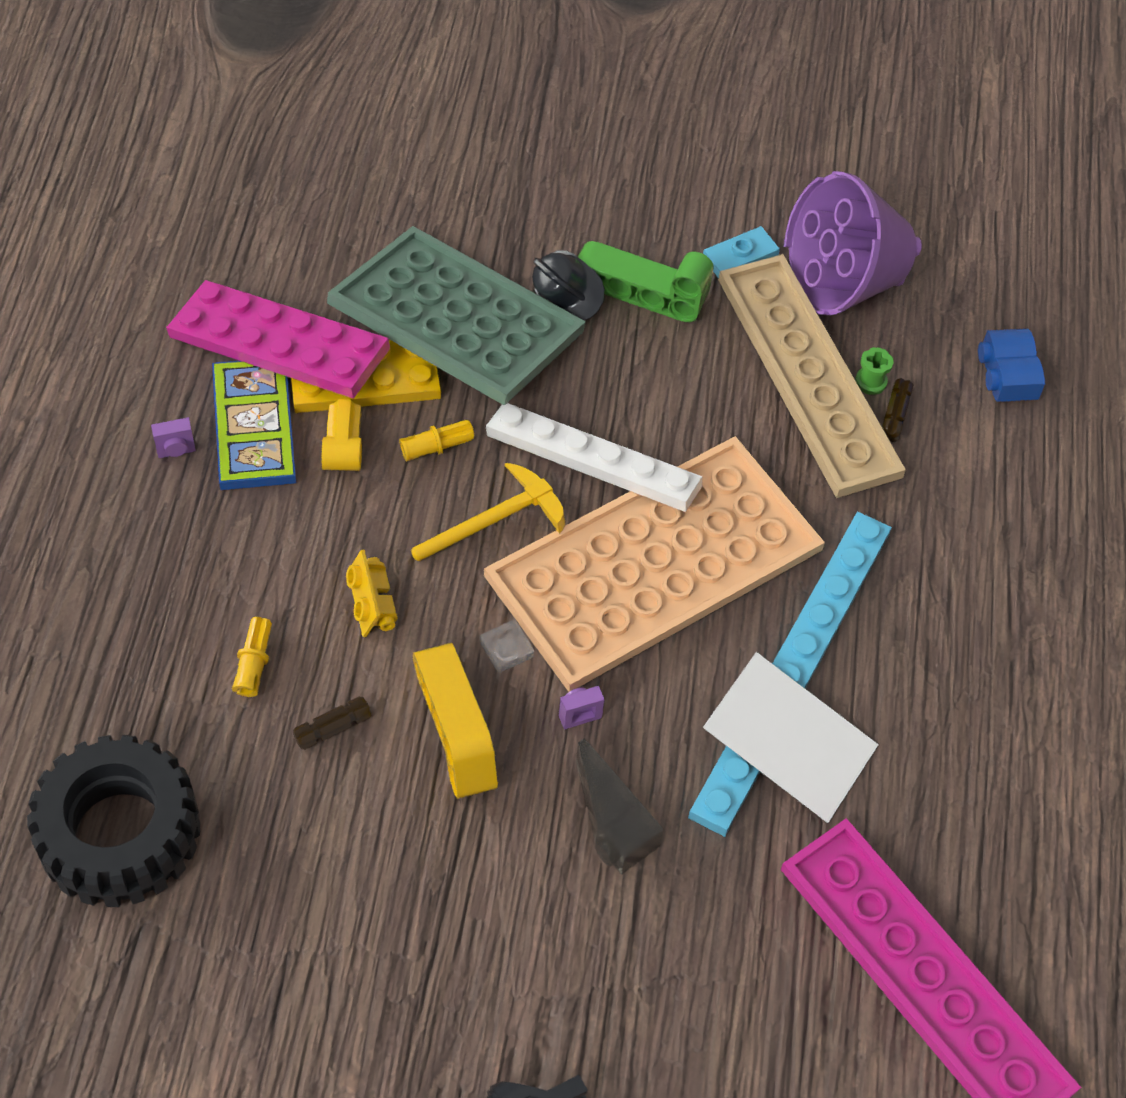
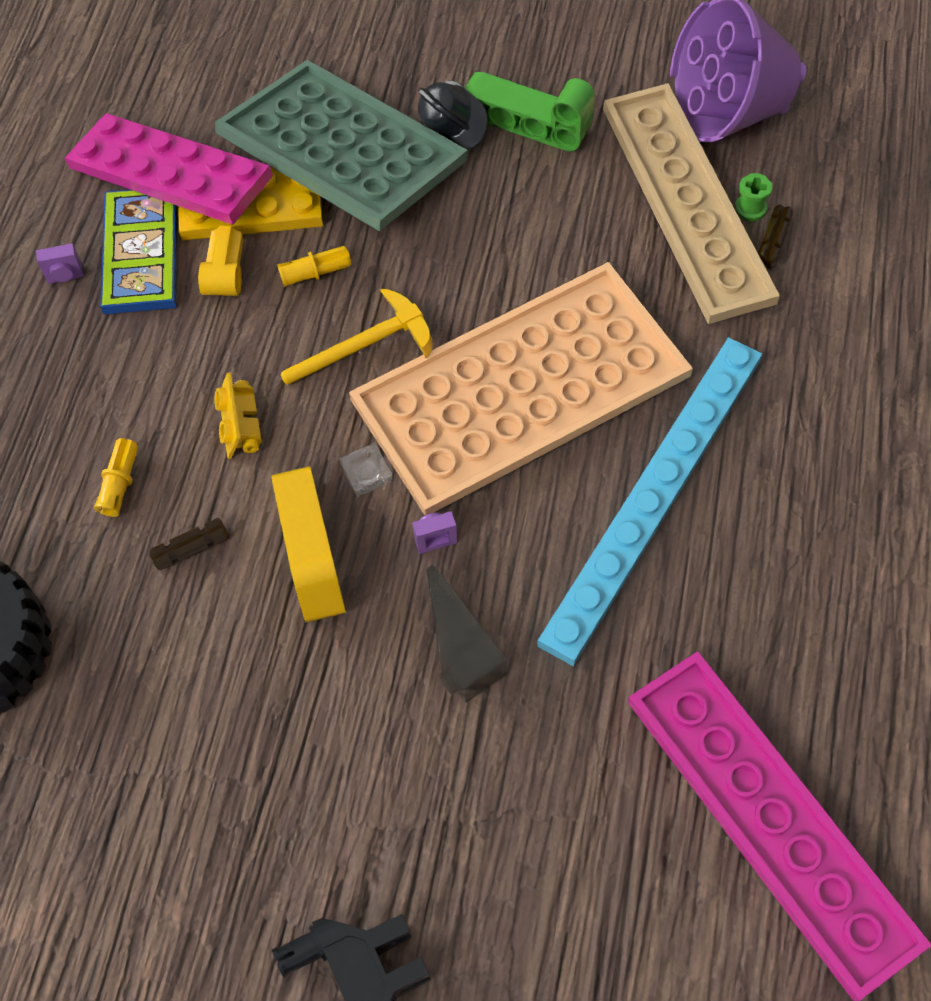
camera: 10 degrees right, 5 degrees up
(595, 456) = (468, 282): white plate -> none
(741, 250) = (627, 80): medium azure plate -> none
(791, 736) = (646, 566): white sticker -> none
(1011, 365) = (894, 191): blue brick -> none

